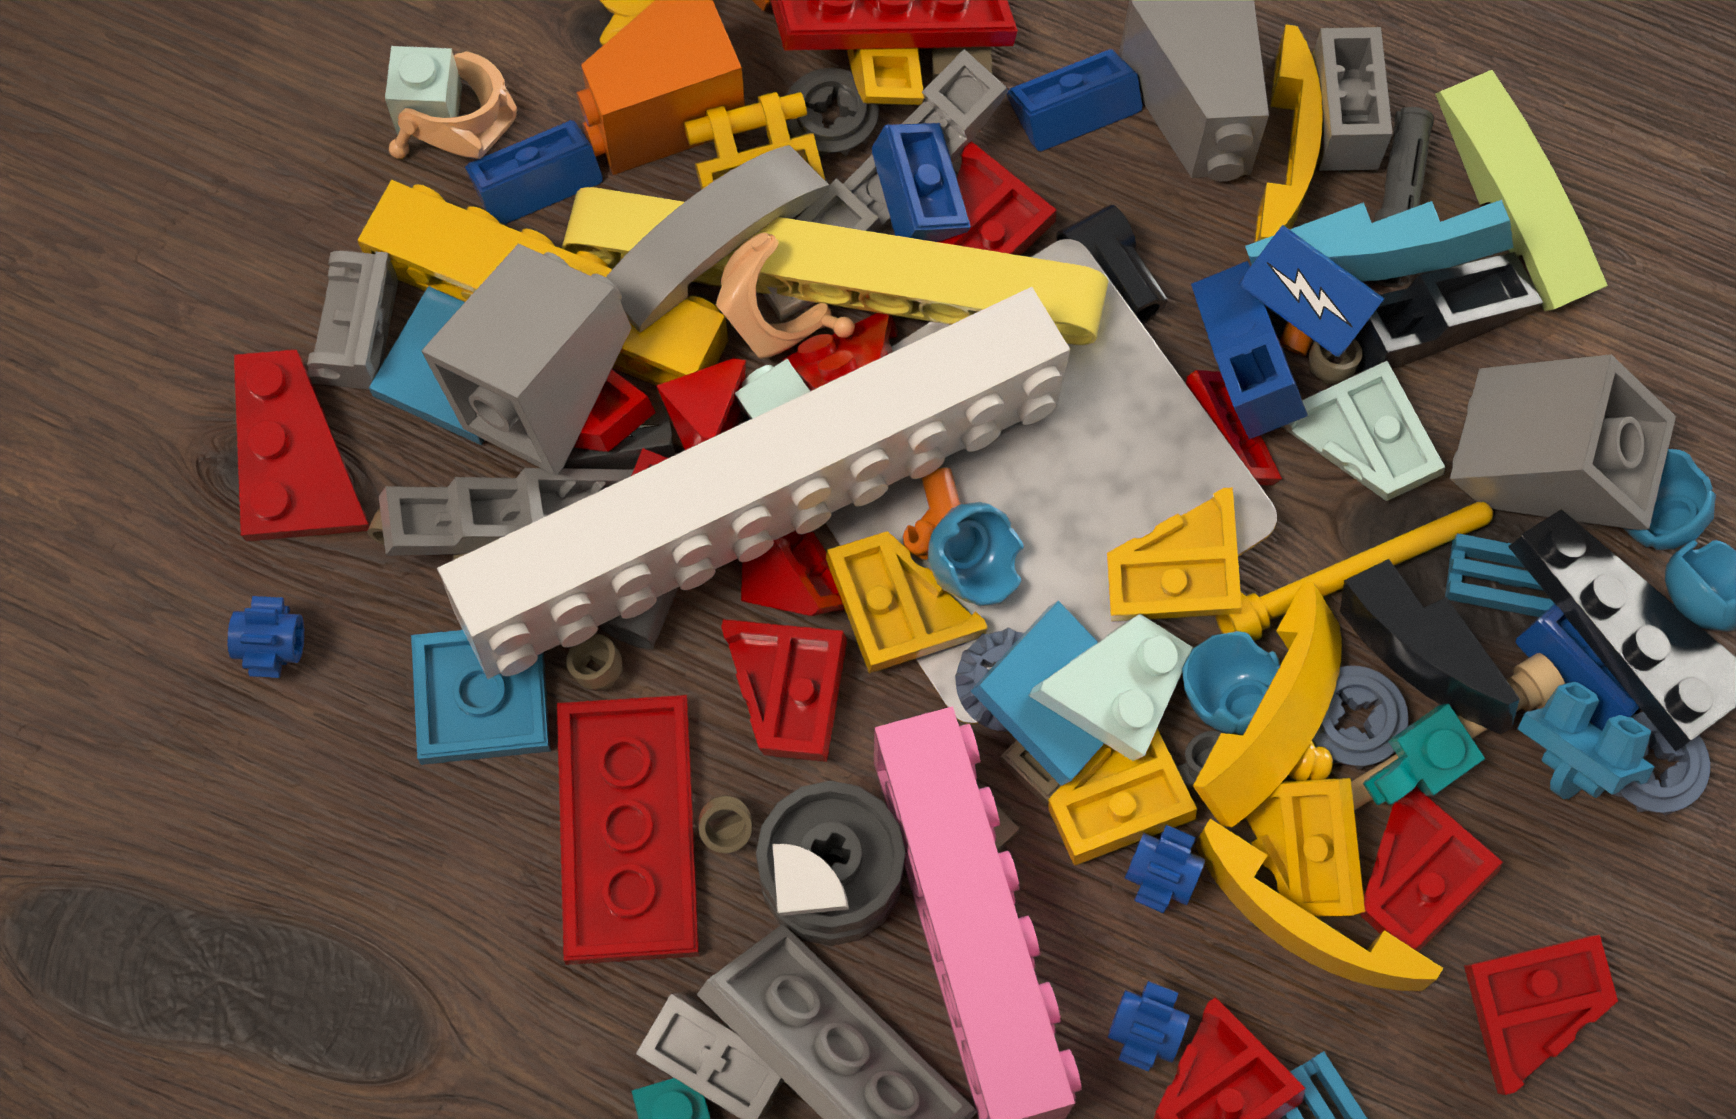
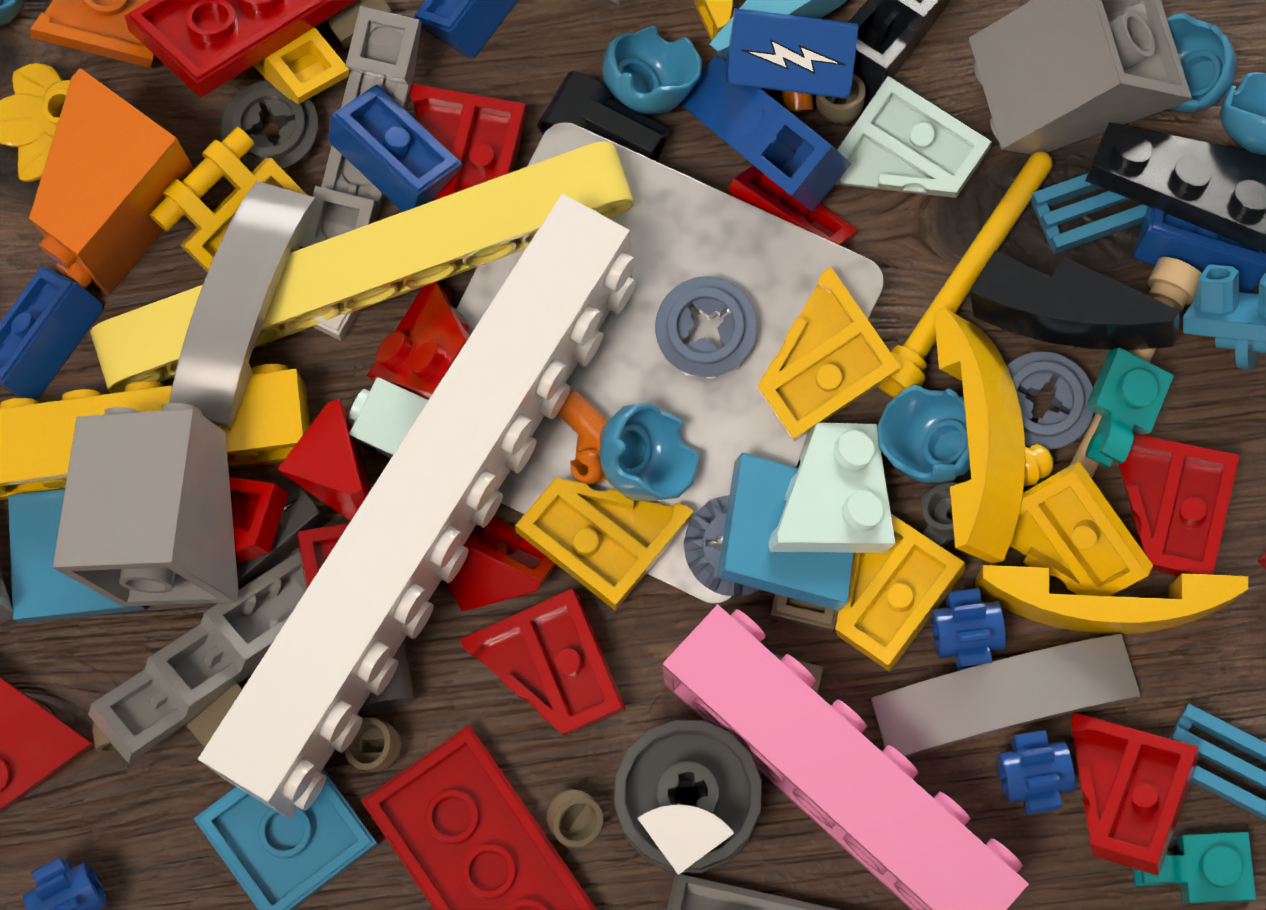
camera: 25 degrees left, 5 degrees up
(739, 304) = (305, 353): light nougat helmet -> none
(1069, 463) = (711, 298): none -> sand blue gear
(1166, 946) = (1005, 695): none -> light grey slope
(1180, 242) = (649, 71): none -> dark azure hair

